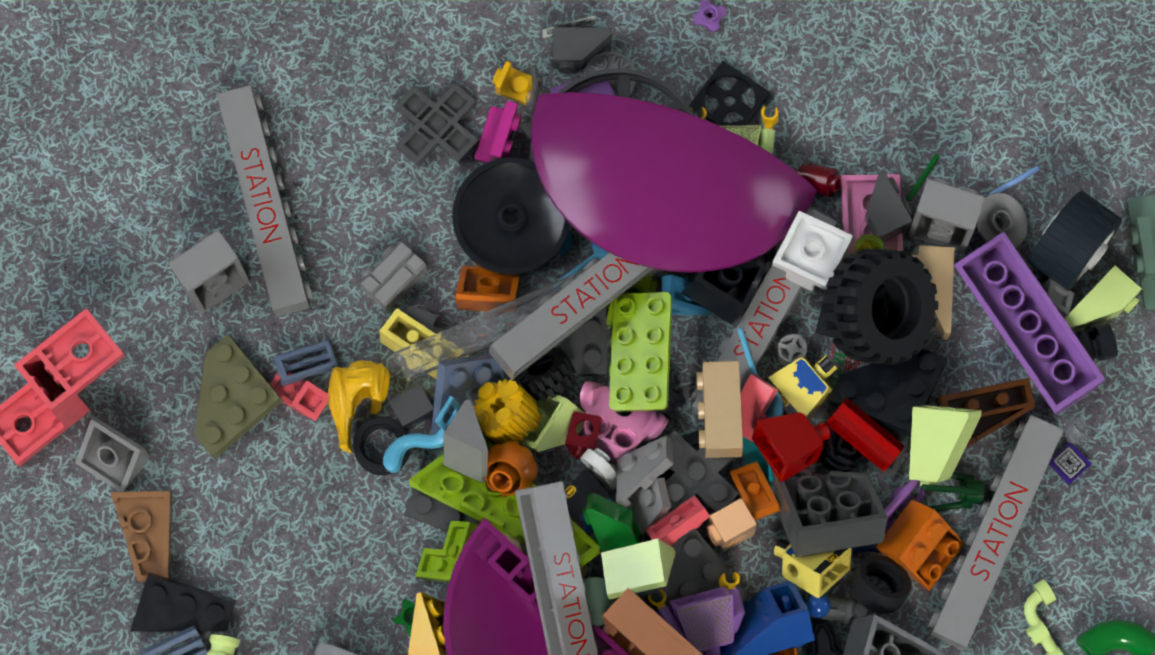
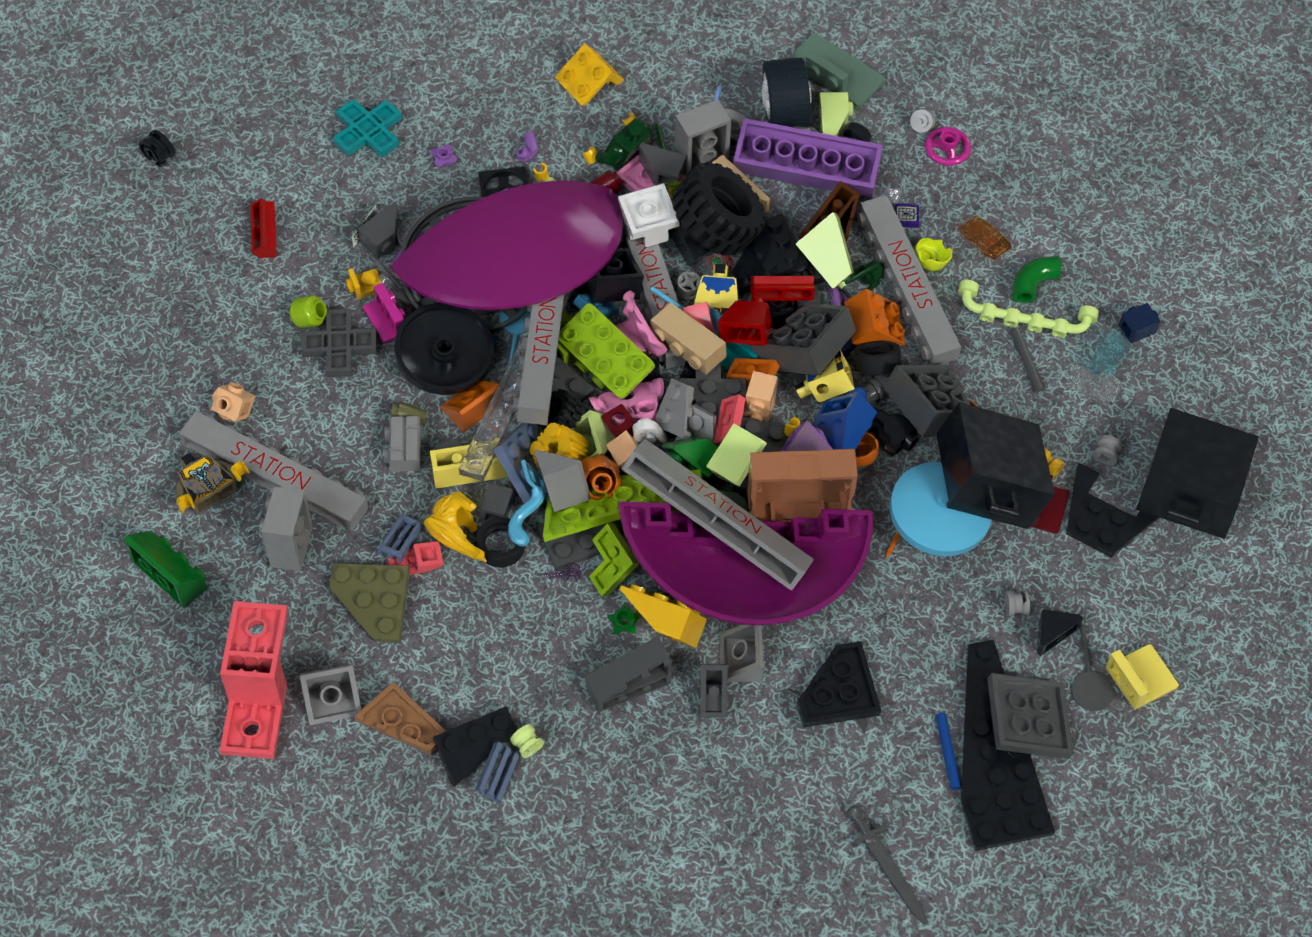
camera: 50 degrees left, 15 degrees down
(93, 211) = (166, 567): none -> green slope
(196, 159) = (206, 481): none -> torso
(291, 103) = (232, 402): none -> light nougat brick
(413, 531) = (572, 571): none -> clear purple hand
(425, 248) = (404, 409): none -> olive cone
(436, 70) = (308, 311): none -> lime head
(559, 465) = (622, 448): none -> light nougat brick
(687, 354) = (638, 330): none -> bright pink piece
(795, 78) = (530, 149): none -> medium lavender arm
(879, 155) = (623, 145): none -> dark green torso
(924, 47) = (587, 74): none -> yellow bracket
(1038, 518) = (932, 248): none -> neon yellow hair
(1117, 555) = (987, 238): none -> clear orange slope

